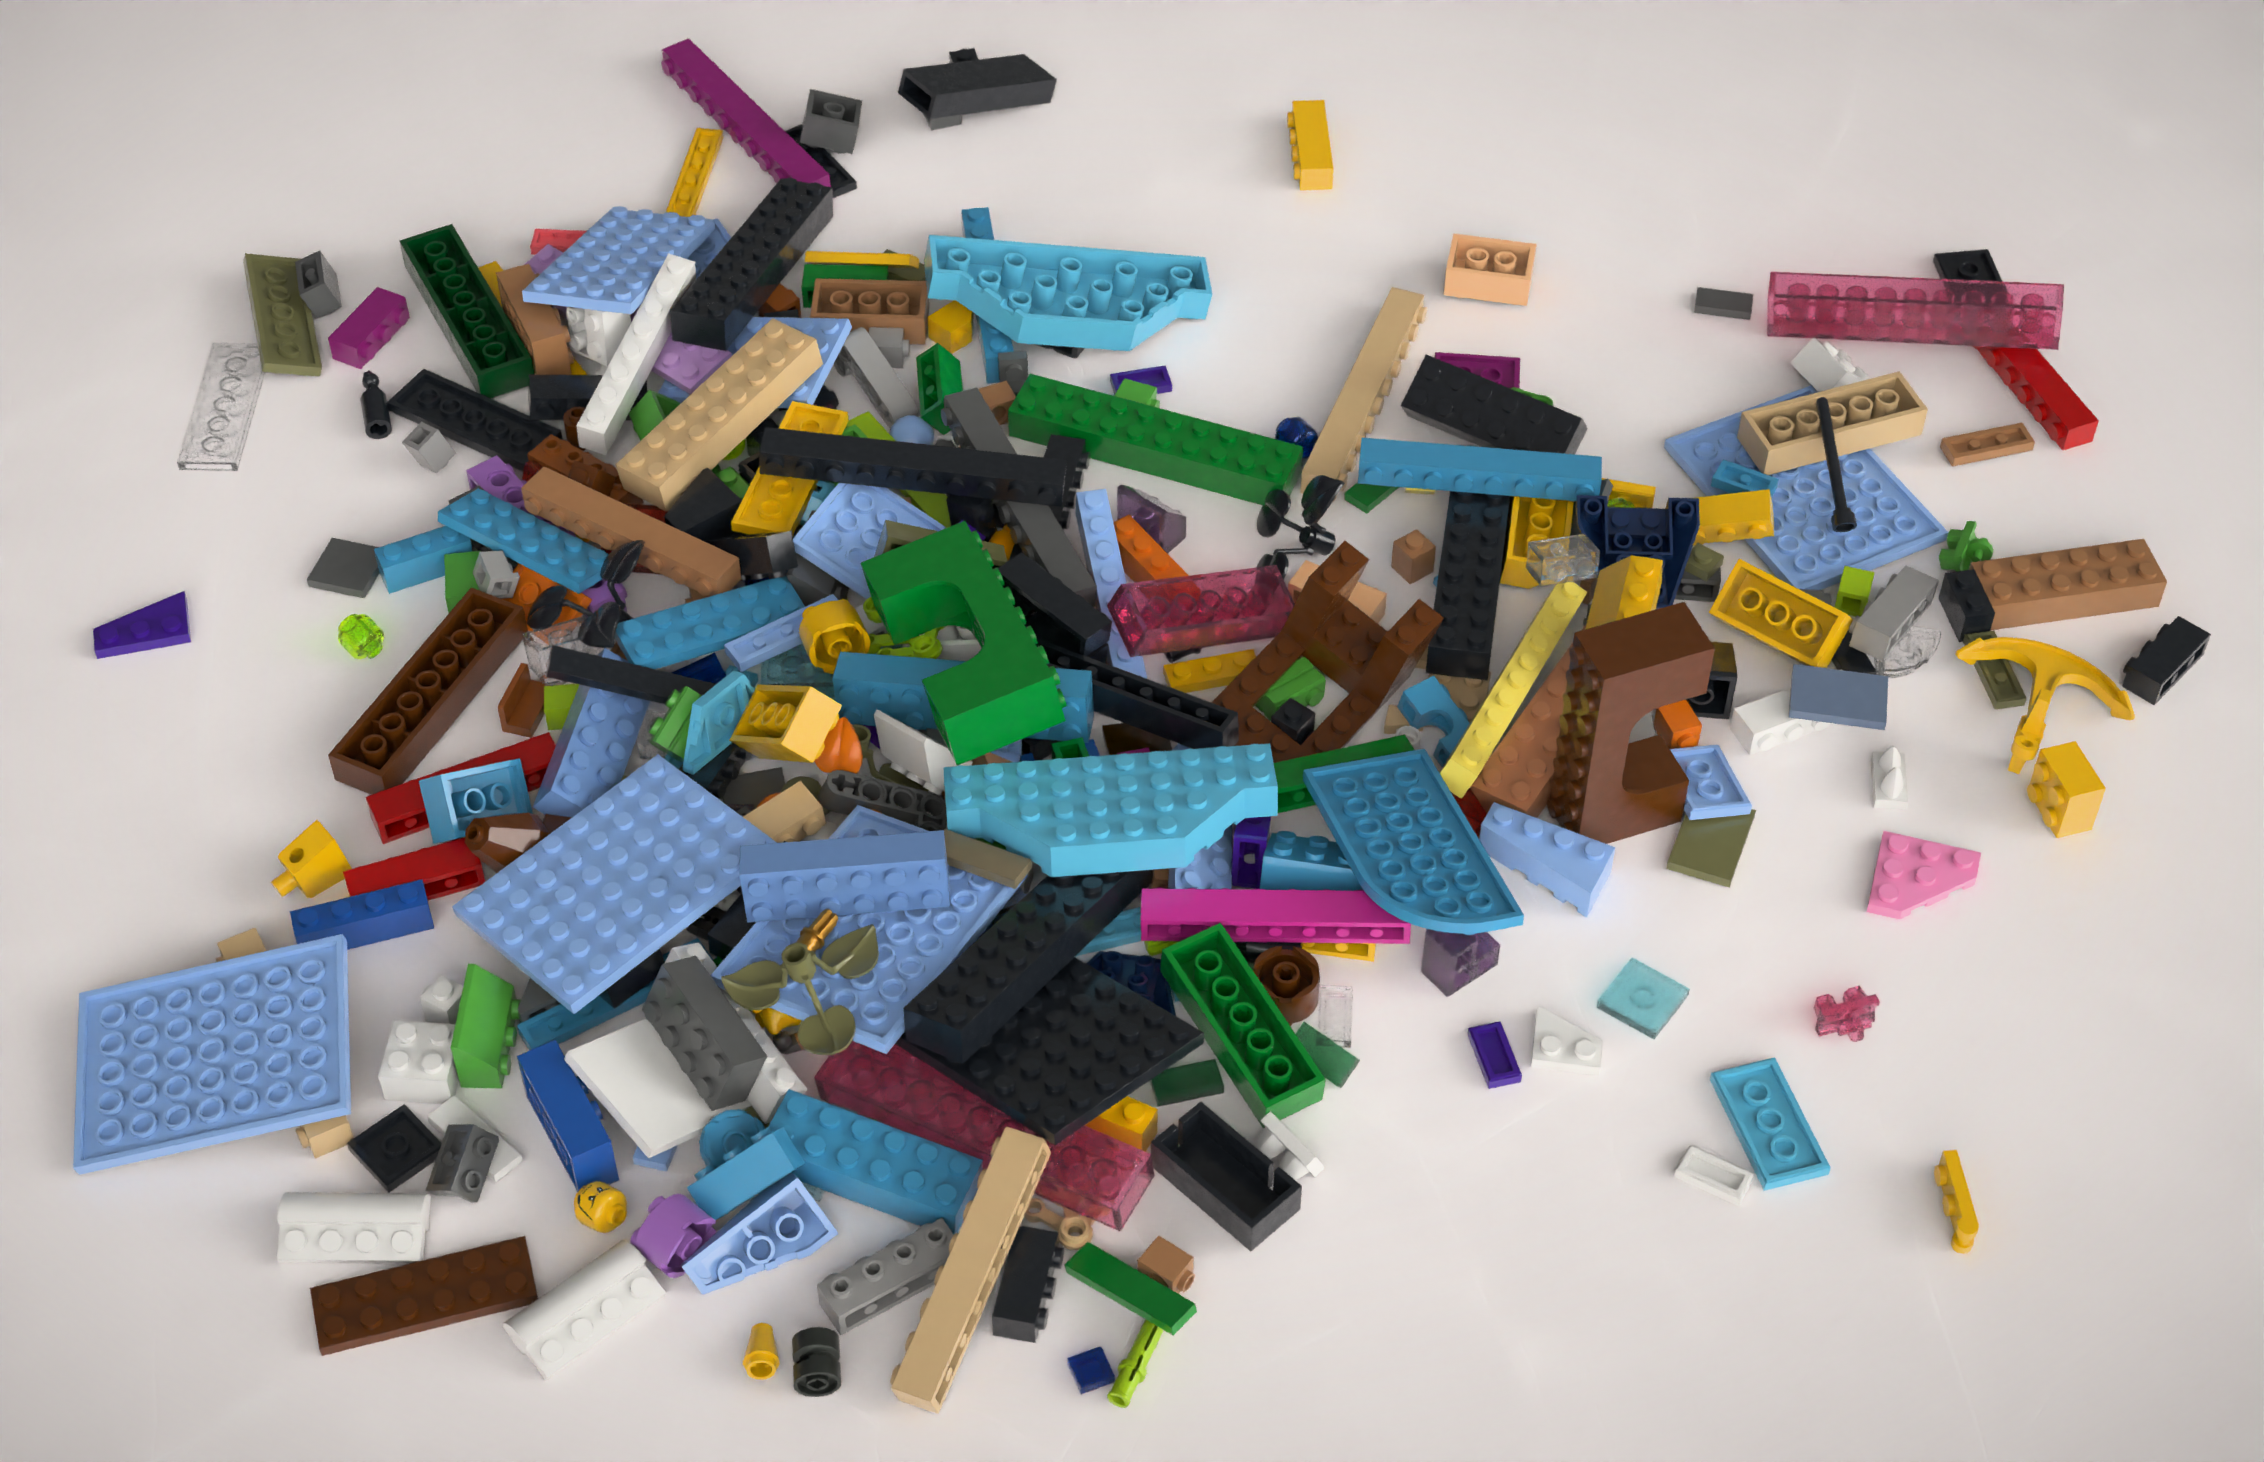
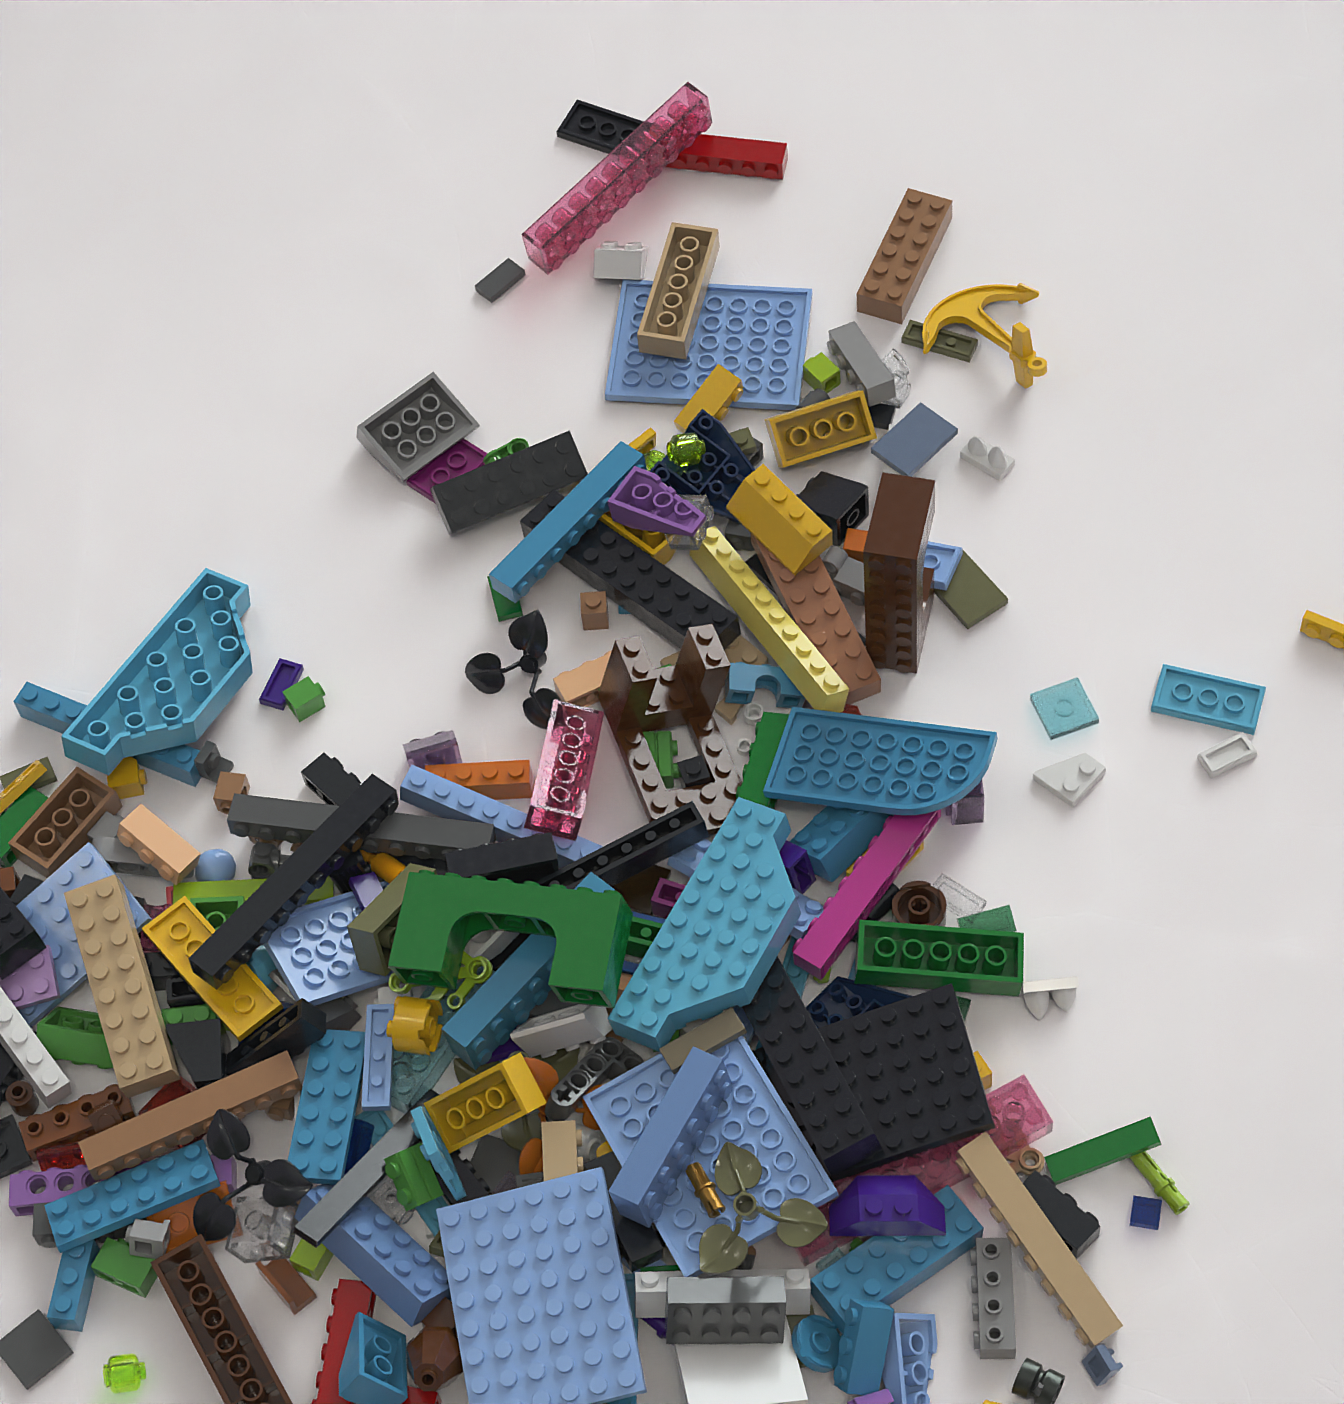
camera: 50 degrees left, 10 degrees up
(876, 1414) = (1101, 1364): none -> sand blue tile
(888, 371) = (158, 844): none -> light nougat brick
(910, 1112) = (887, 1208): none -> dark purple wedge
(937, 376) = (191, 820): green brick -> none
(1156, 440) = (354, 708): green brick -> none
(1167, 1265) = (1099, 1118): medium nougat brick -> none
(1207, 671) = (601, 797): yellow plate -> none
(1226, 1176) = (1051, 1041): black piece -> none
(1298, 432) = (425, 616): clear blue head -> none
(1311, 145) = (131, 431): yellow brick -> none
(1365, 387) = (413, 549): tan brick -> none
(1489, 269) = (358, 395): light nougat brick -> none
(1494, 1055) = (1051, 822): dark purple tile -> none
(1495, 322) = (416, 427): none -> light grey slope
(1548, 855) = (919, 688): light blue wedge -> none
(1549, 513) = (650, 505): none -> medium lavender wedge
(1640, 511) = (685, 449): none -> clear neon green head
(1737, 479) = (685, 373): dark azure plate -> none
(1842, 519) = (761, 337): black piece -> none
(1848, 1017) = (1158, 592): clear pink hips -> none
(1917, 874) = (1072, 492): bright pink plate -> none
(1964, 549) = (837, 298): bright green hips -> none
(1966, 603) = (882, 319): black brick -> none
(1987, 444) = (750, 217): medium nougat plate -> none
(2065, 789) = (1075, 367): yellow brick -> none
(2165, 659) = (1004, 244): black brick -> none

